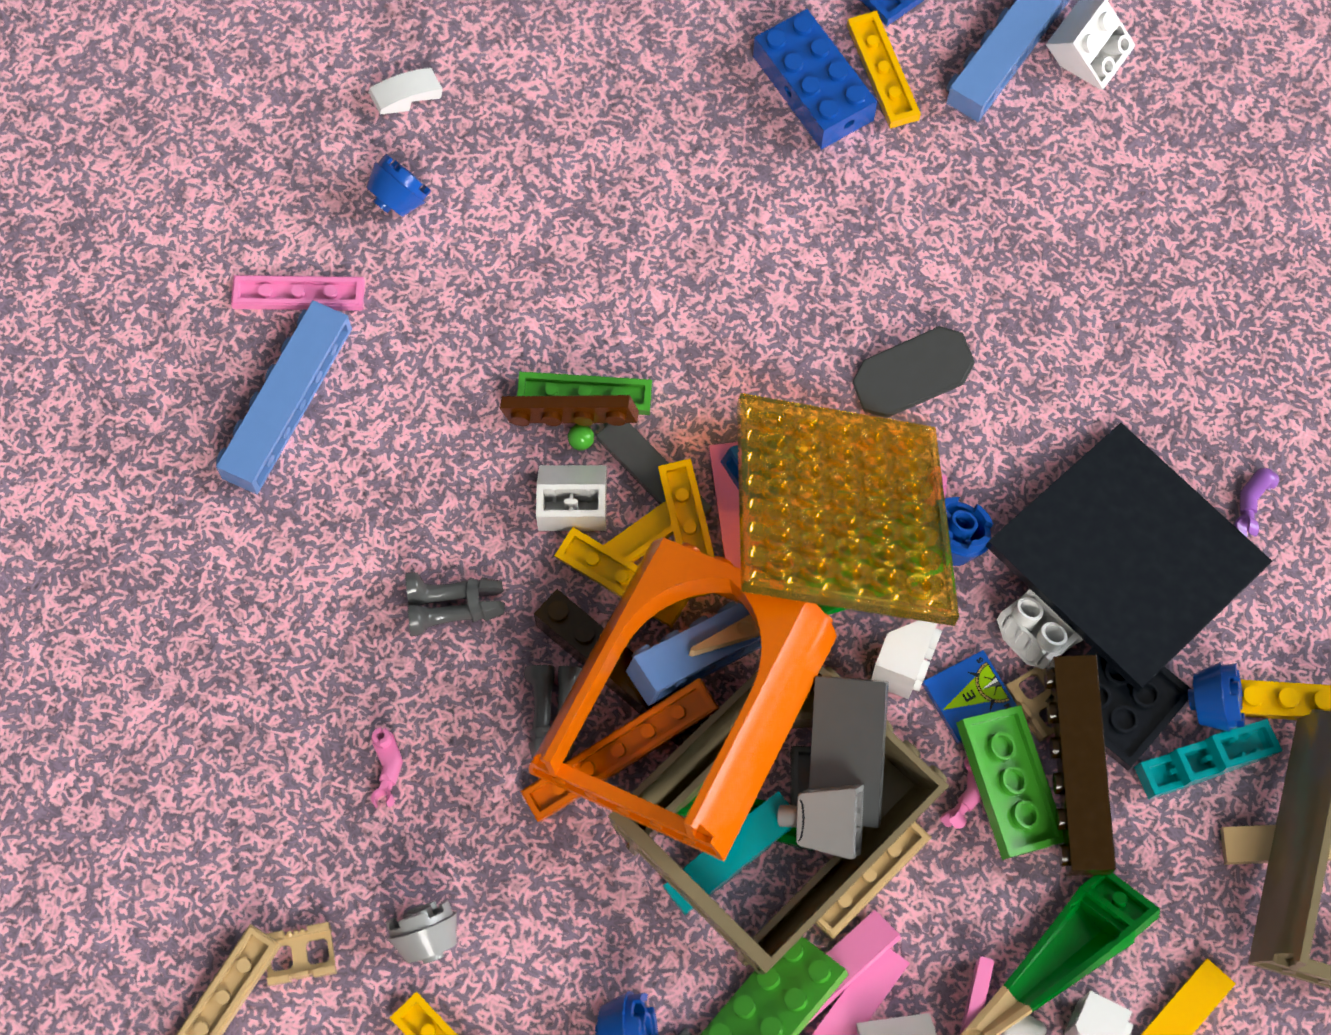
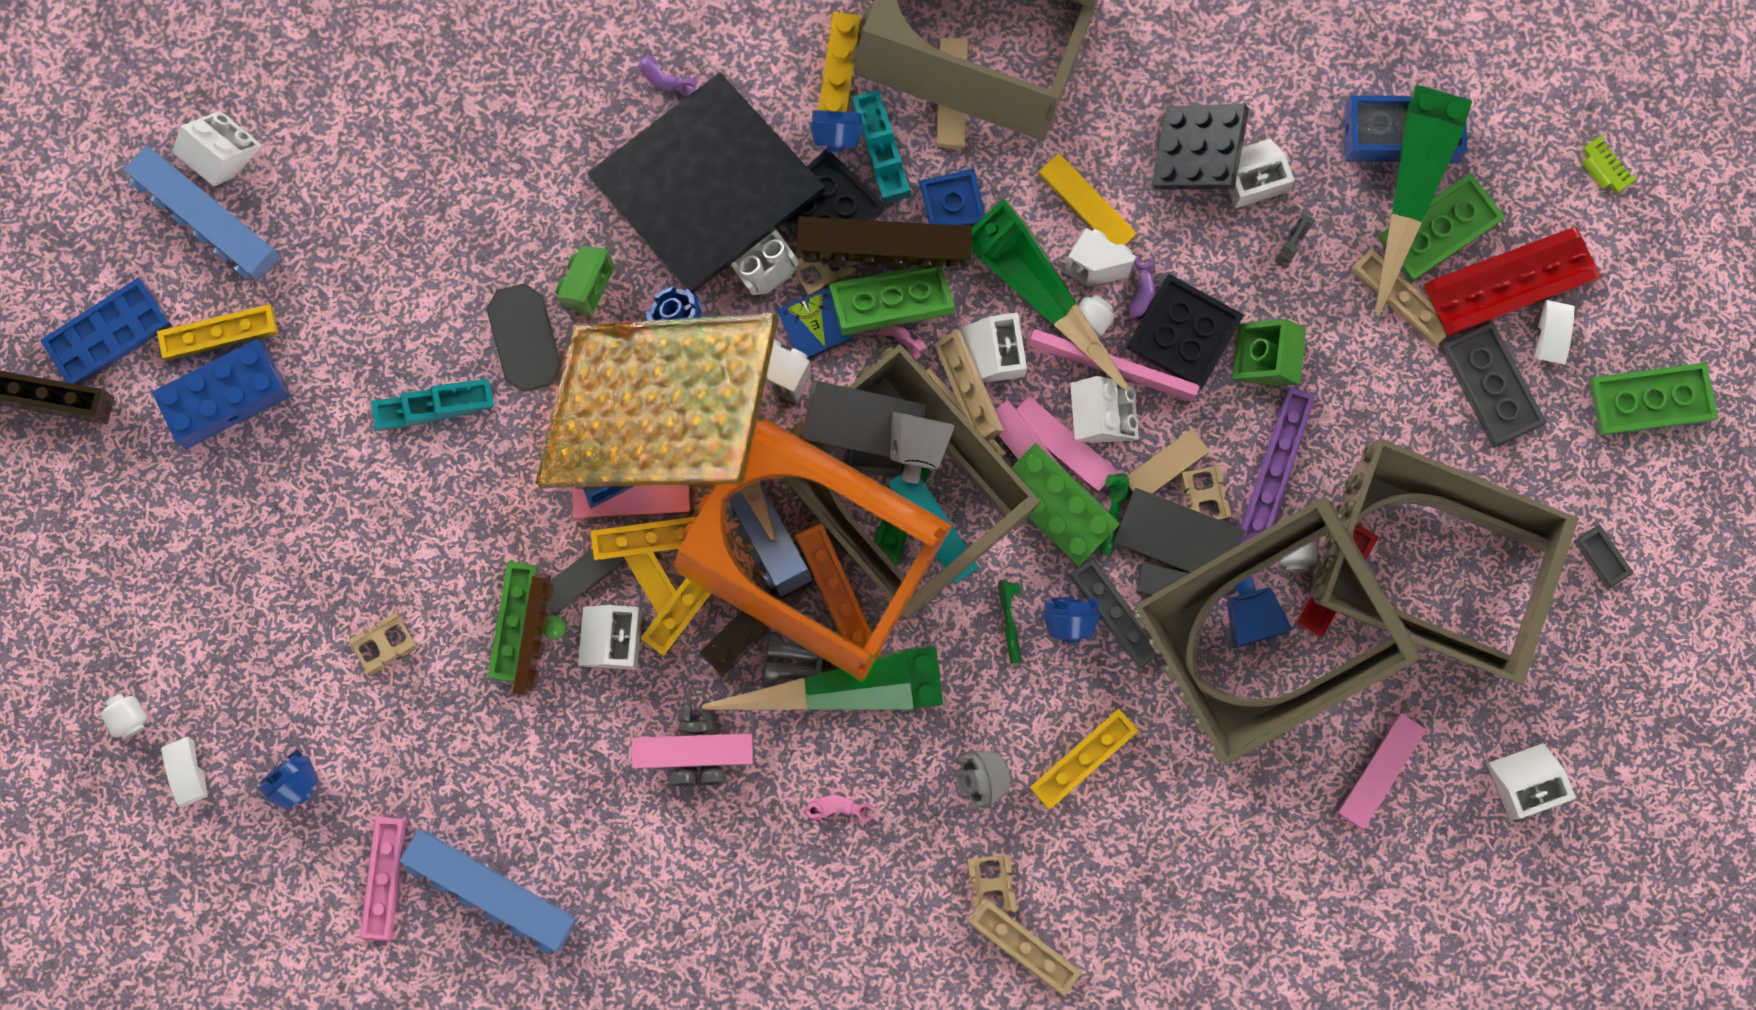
camera: 85 degrees left, 10 degrees up
(443, 593) = (692, 751): none -> bright pink tile
(461, 29) = (124, 716): none -> white head
(536, 813) = (894, 682): none -> green plate
(543, 271) = (387, 652): none -> tan piece
(659, 951) = (1006, 591): none -> green piece
(825, 287) = (432, 405): none -> teal slope
(909, 884) = (968, 384): none -> tan tile
(962, 914) = (997, 347): none -> white slope
(989, 432) = (585, 280): none -> bright green slope
(1152, 852) = (952, 199): none -> blue tile

